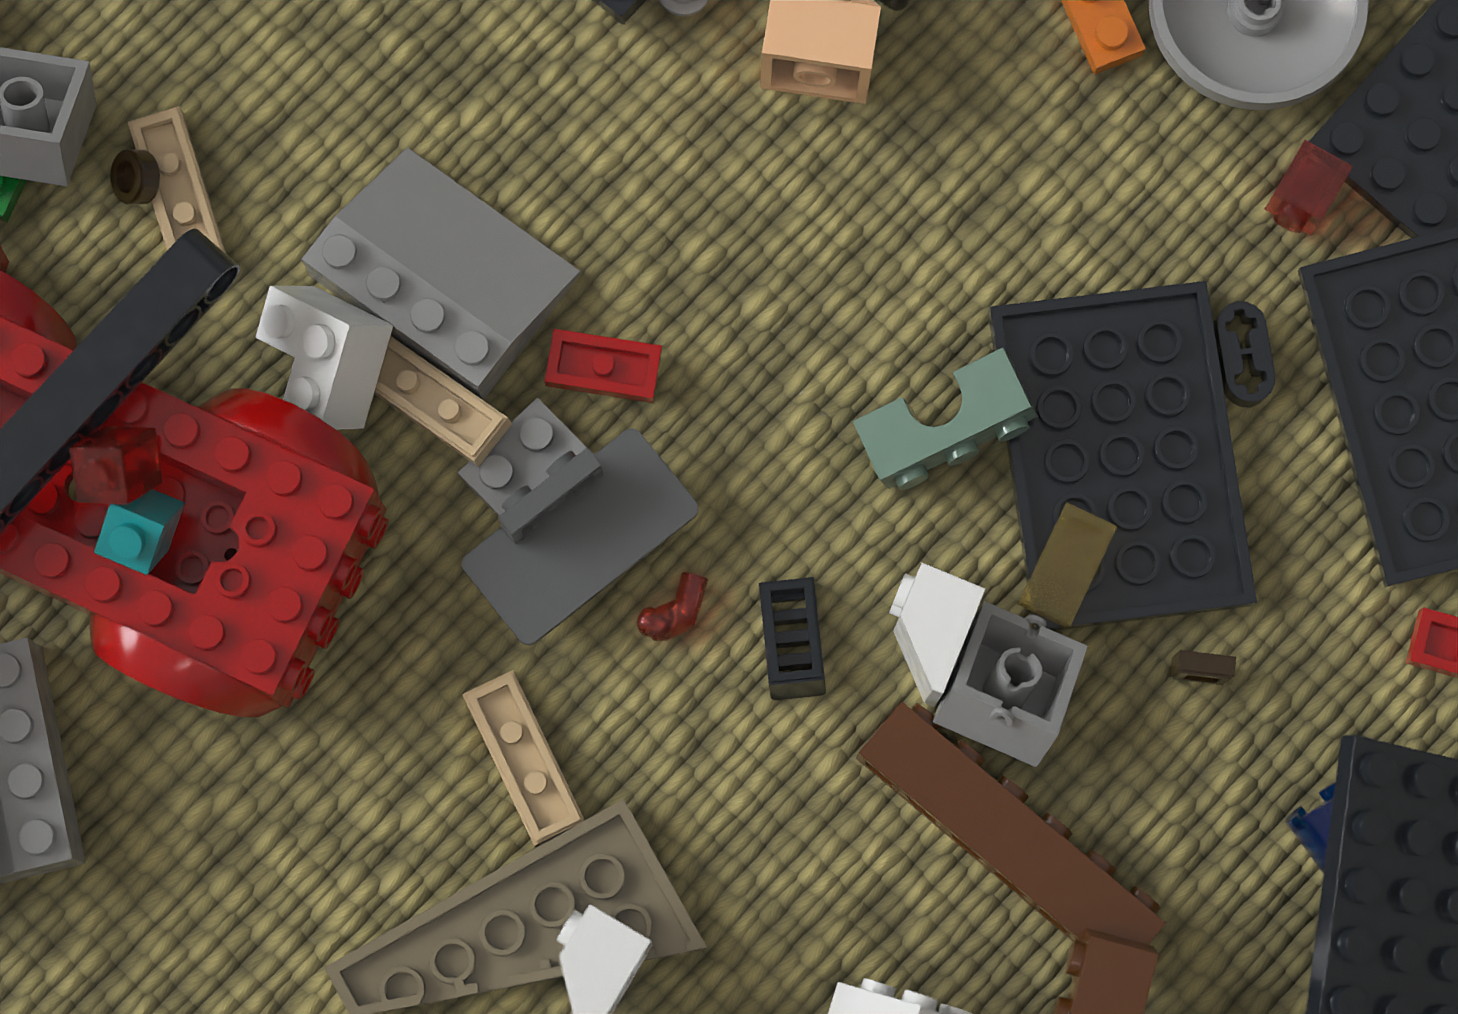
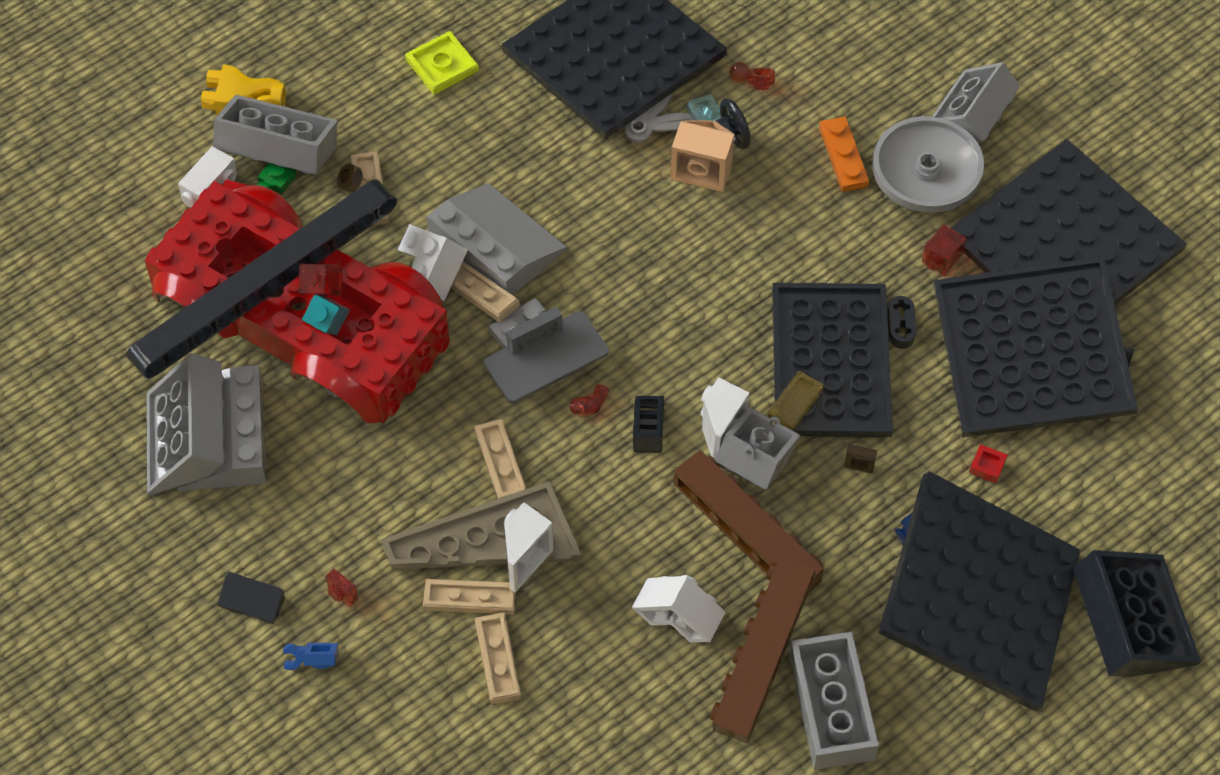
camera: 10 degrees right, 20 degrees down
(603, 365) = (571, 287): red plate -> none
(990, 408) = (763, 325): sand green arch -> none

